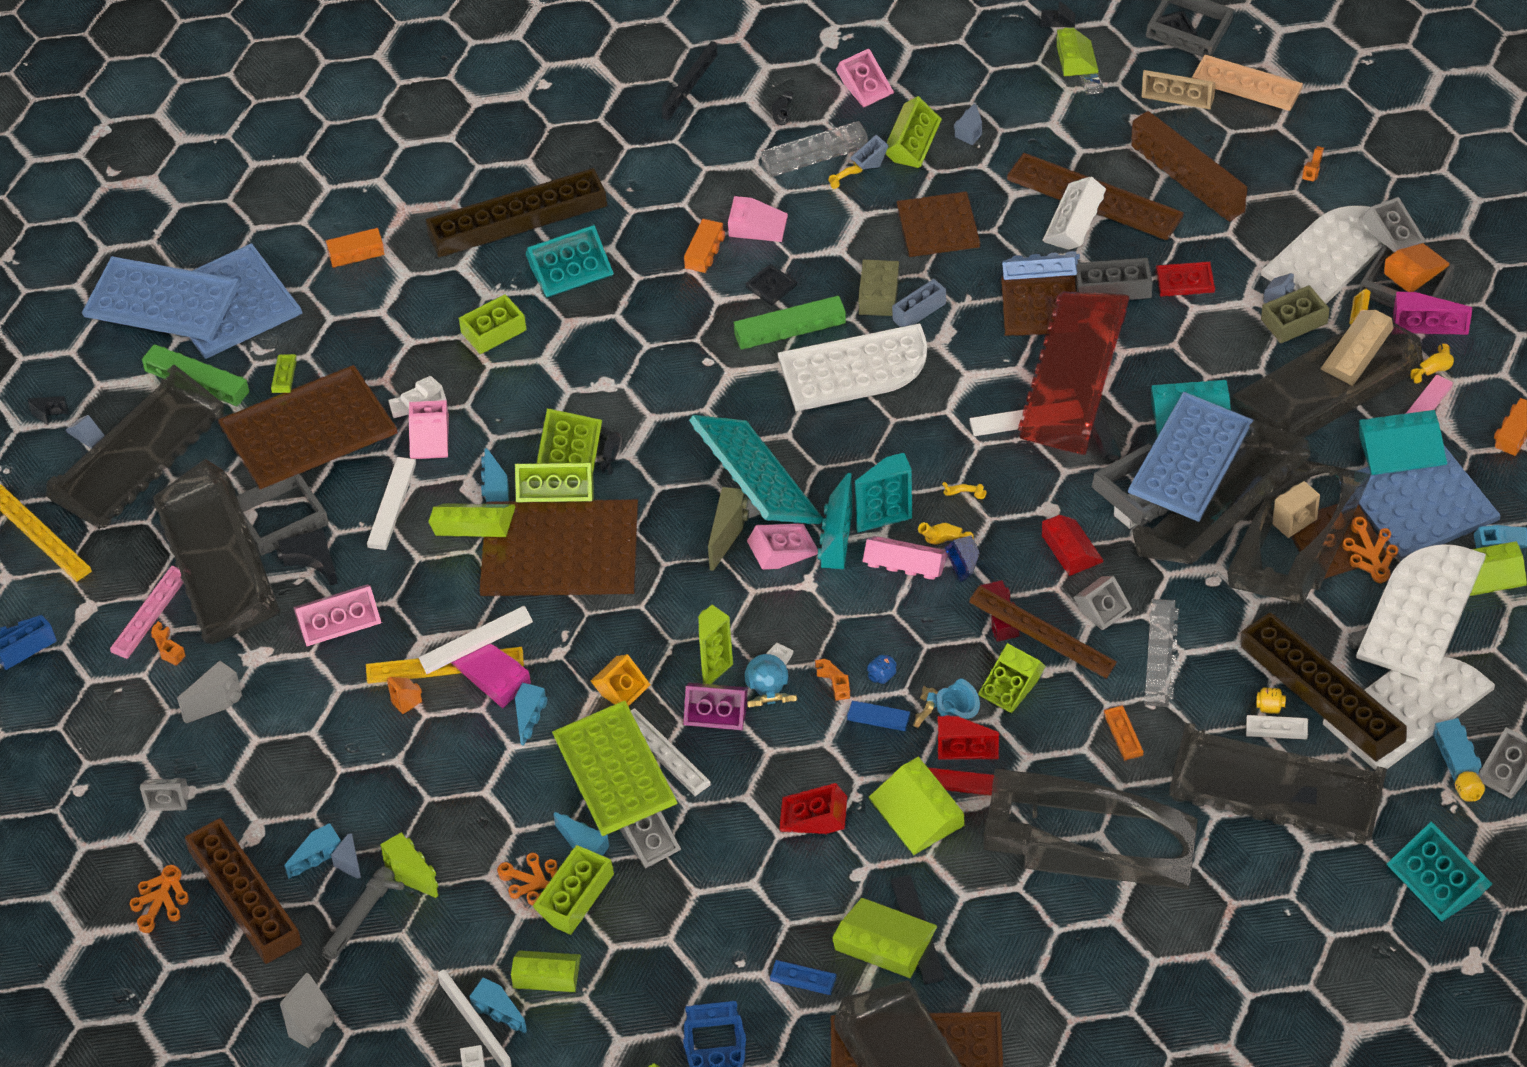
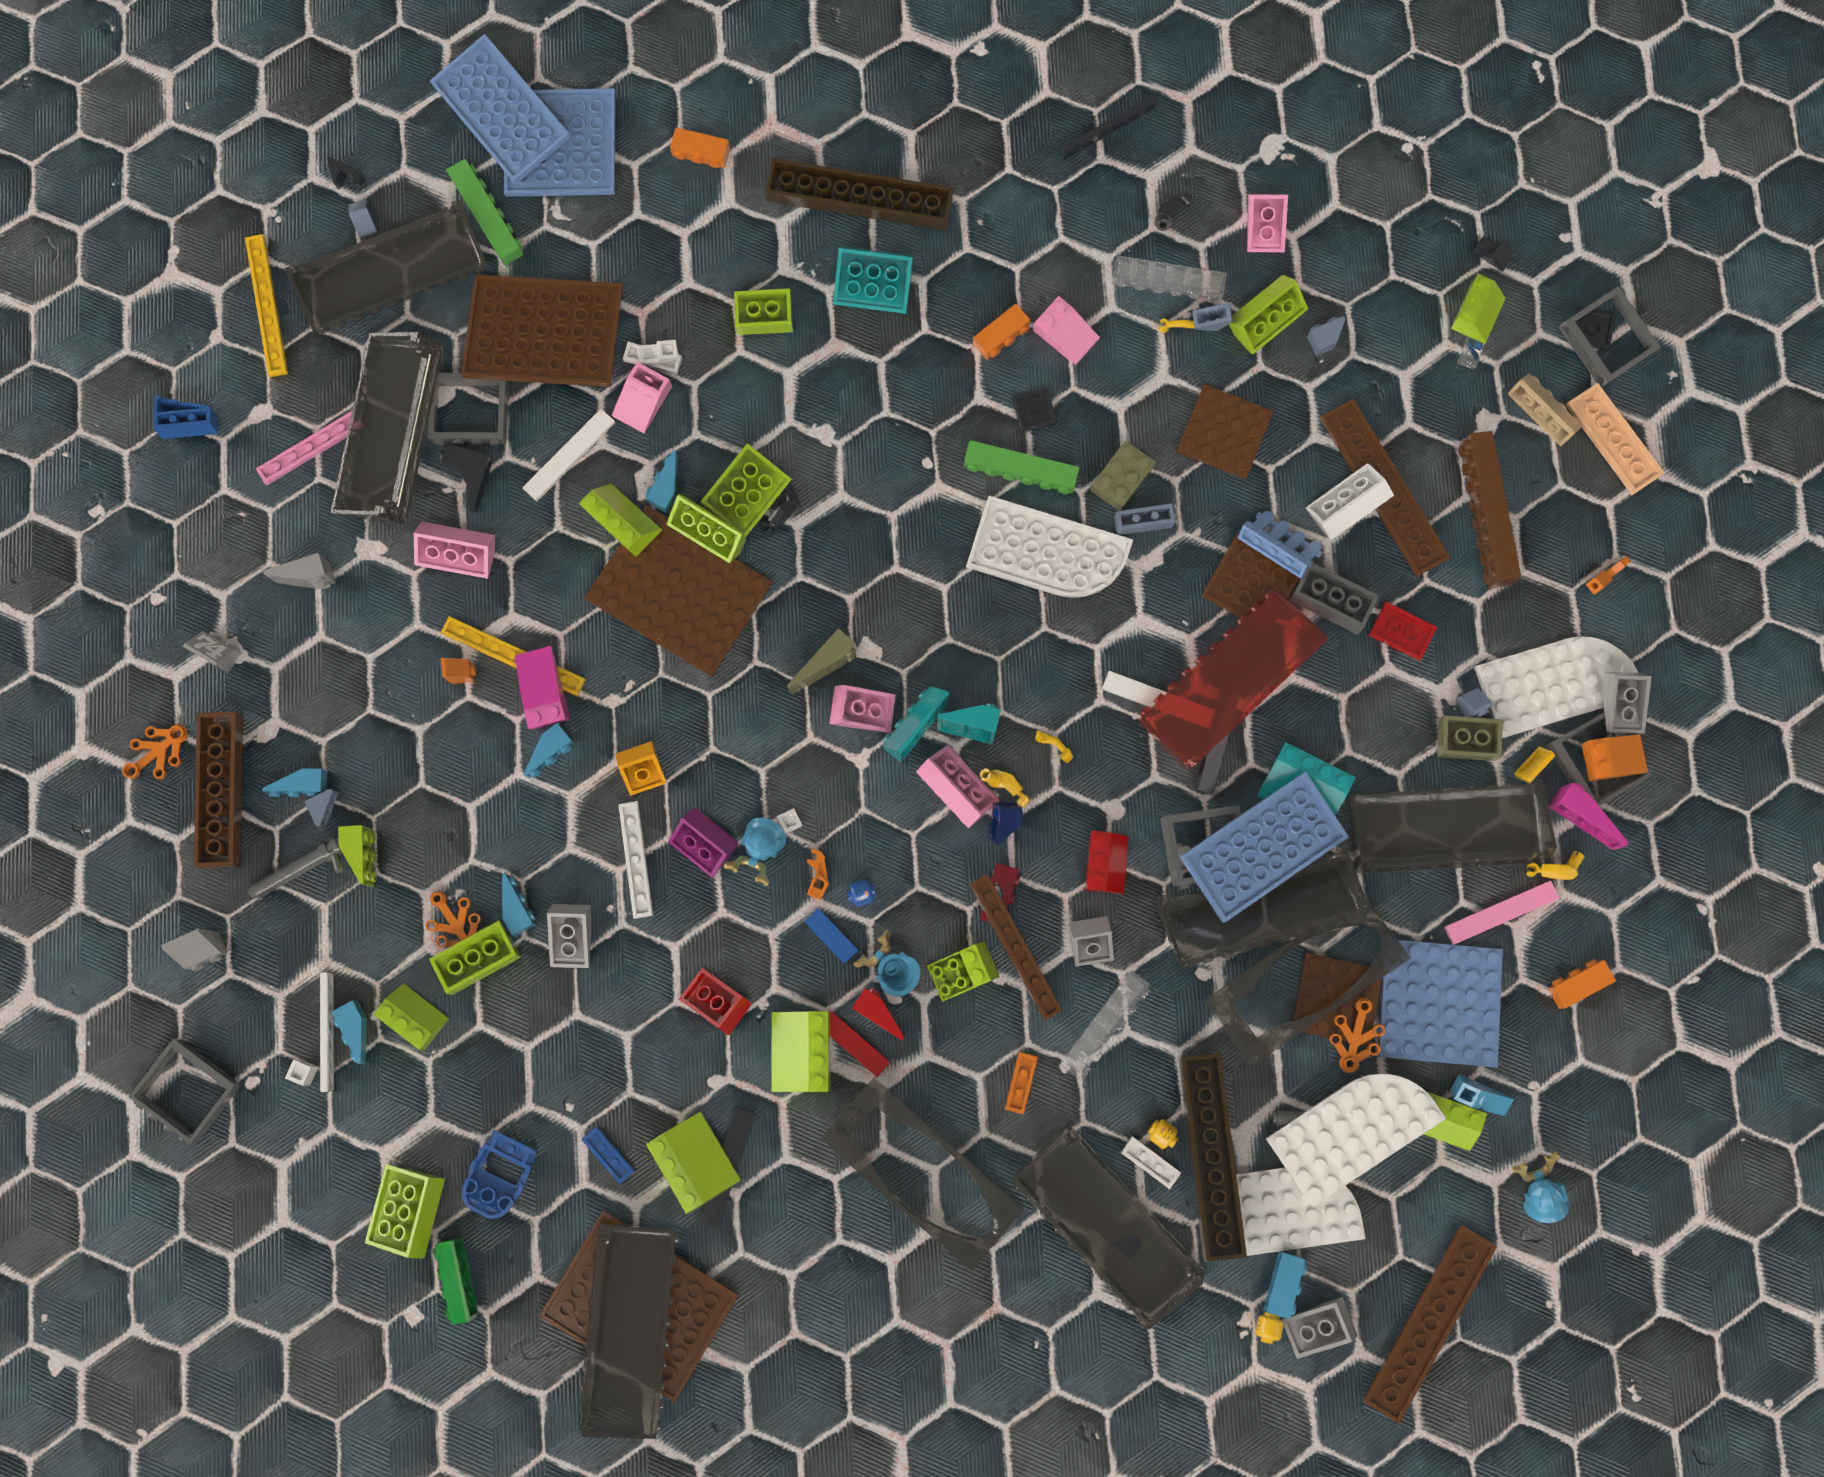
camera: 30 degrees right, 30 degrees up
(160, 636) = (299, 488): orange piece -> none
(284, 373) = (559, 256): lime tile -> none
(475, 639) = (544, 655): white tile -> none
(614, 768) = (574, 863): lime plate -> none
(714, 643) = (724, 793): lime slope -> none
(756, 470) = (883, 621): teal plate -> none
(1296, 509) = (1318, 961): tan brick -> none
(1358, 346) = (1498, 812): tan slope -> none
(1402, 442) = (1463, 944): teal slope -> none
(1439, 872) = (1184, 1395): teal slope -> none

